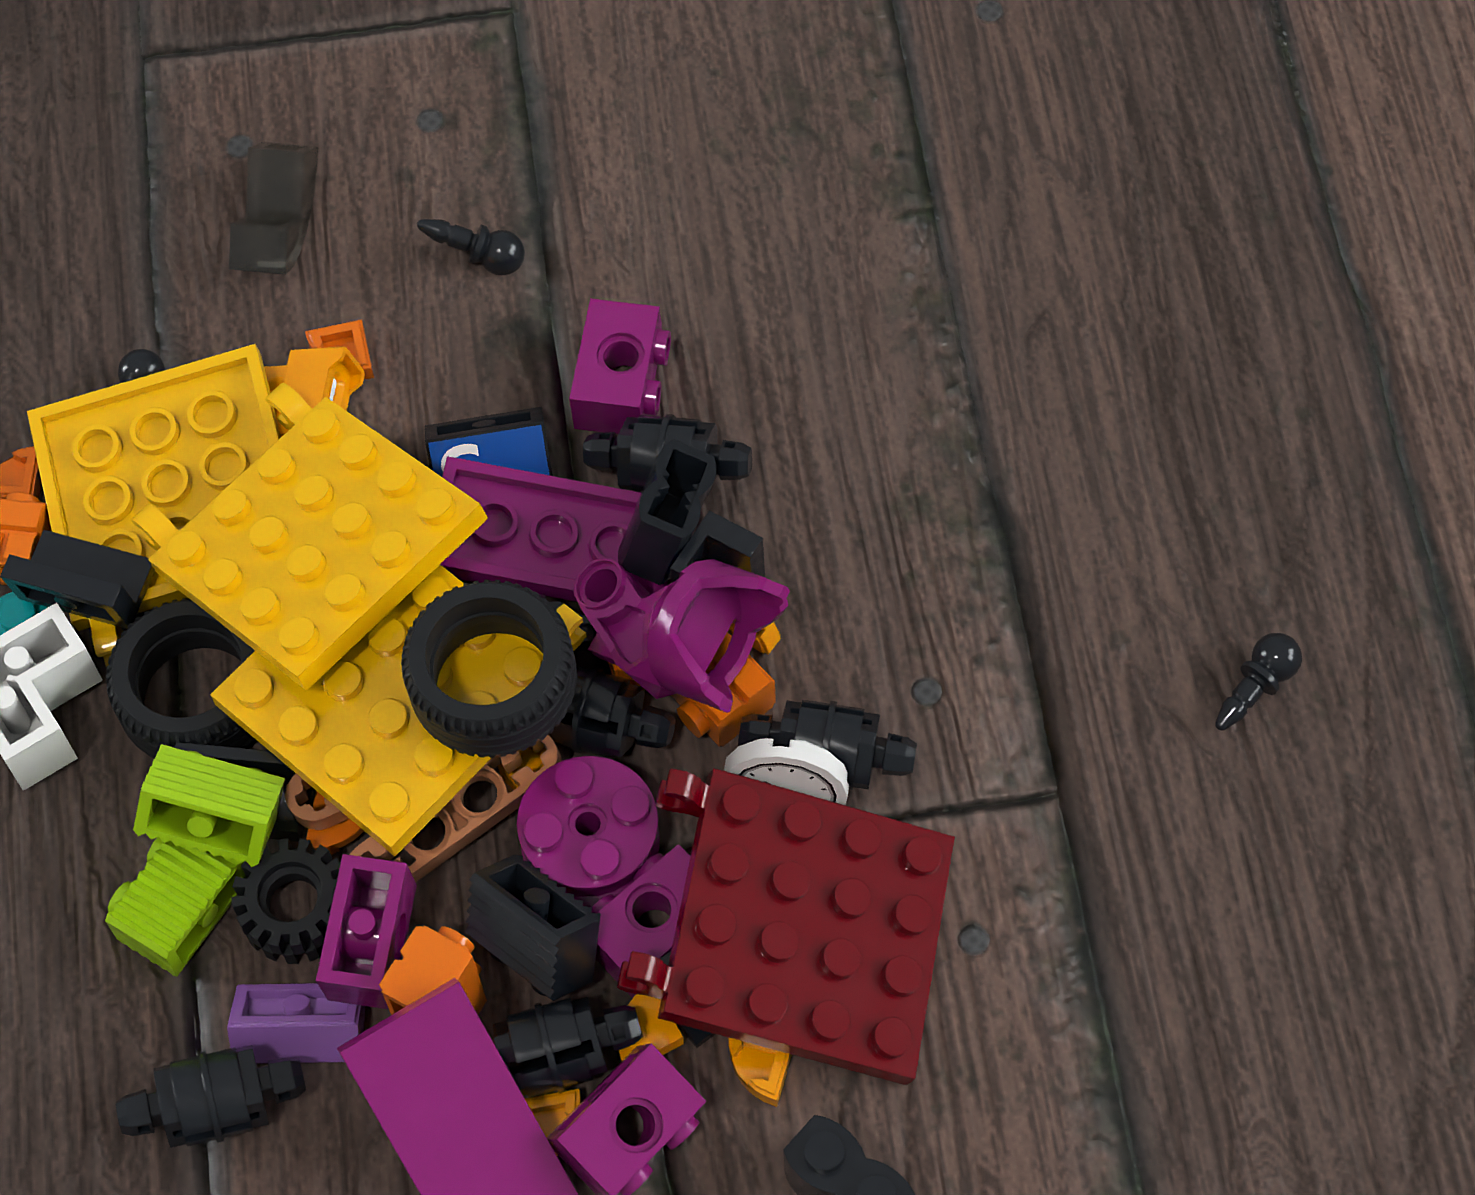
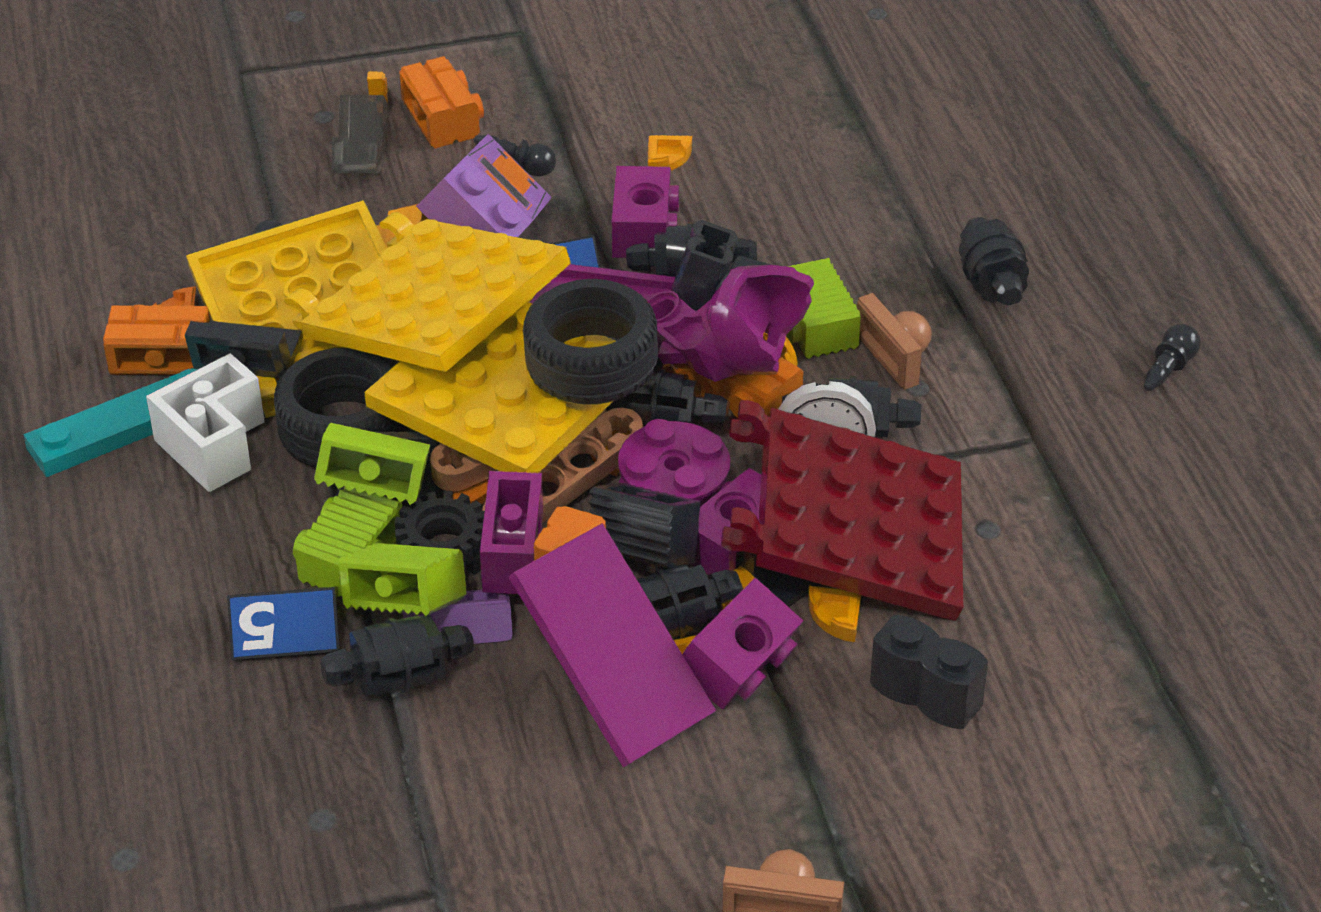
camera: 10 degrees left, 20 degrees down
(87, 1012) = (283, 622): none -> blue panel
(228, 983) = (402, 578): none -> lime brick
(308, 116) = (377, 84): none -> light orange tile
(386, 147) = (441, 101): none -> orange brick
(417, 345) = (486, 193): none -> medium lavender slope
(669, 253) = (669, 150): none -> light orange tile
(813, 556) = (832, 316): none -> lime brick
(907, 620) = (894, 339): none -> nougat tile
(1056, 500) = (994, 260): none -> black piece

